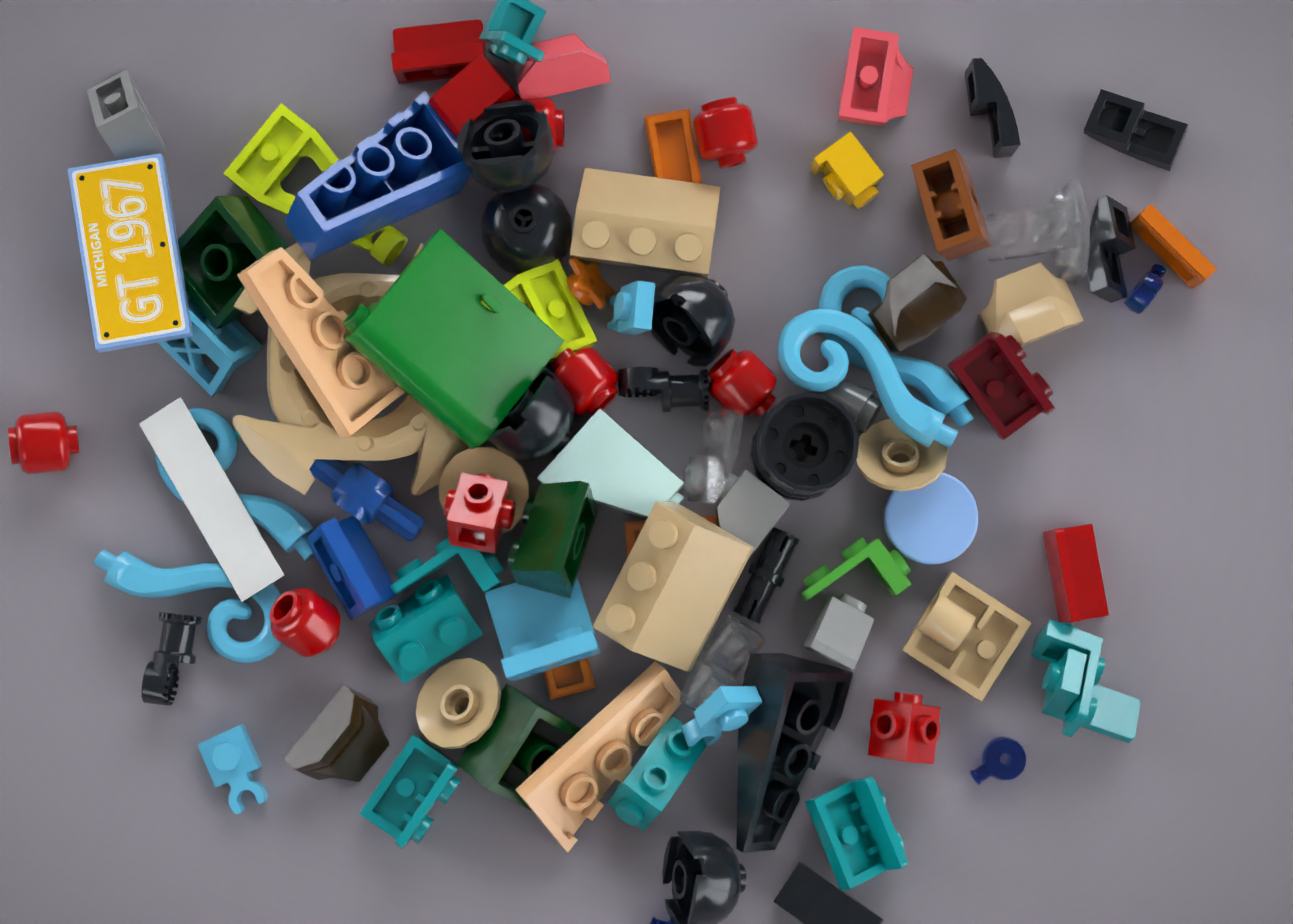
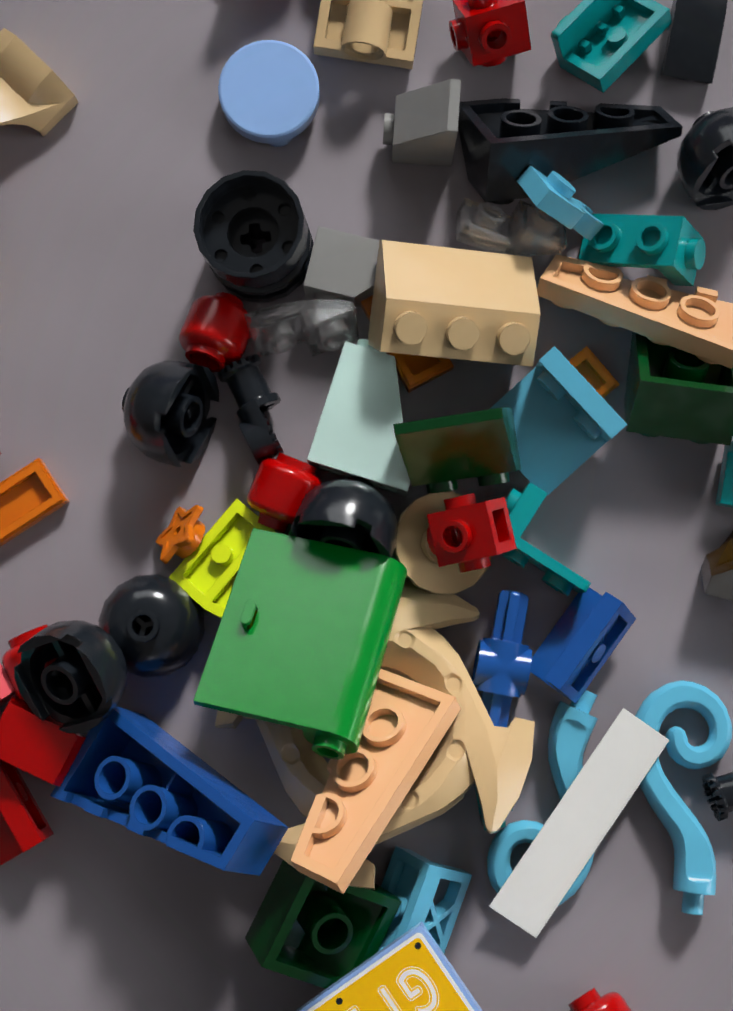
camera: 115 degrees left, 0 degrees up
(275, 153) = (187, 930): neon yellow plate -> none
(305, 622) = (660, 663): red head -> none
(424, 628) = (608, 542): teal bracket -> none
(445, 696) = (671, 491): tan dish -> none
(633, 308) = (188, 471): medium azure plate -> none
(645, 222) = (90, 501): tan slope -> none
(766, 575) = (401, 226): black pin -> none
(857, 401) = (180, 221): dark grey cone -> none
(887, 566) = (336, 113): bright green bracket -> none
(897, 461) = (204, 135): tan dish -> none
(907, 413) = (173, 155): medium azure plant -> none
(917, 303) = (60, 190): dark brown slope -> none
(932, 381) = (130, 147): medium azure plant -> none
(1001, 383) = (101, 75): dark red bracket -> none

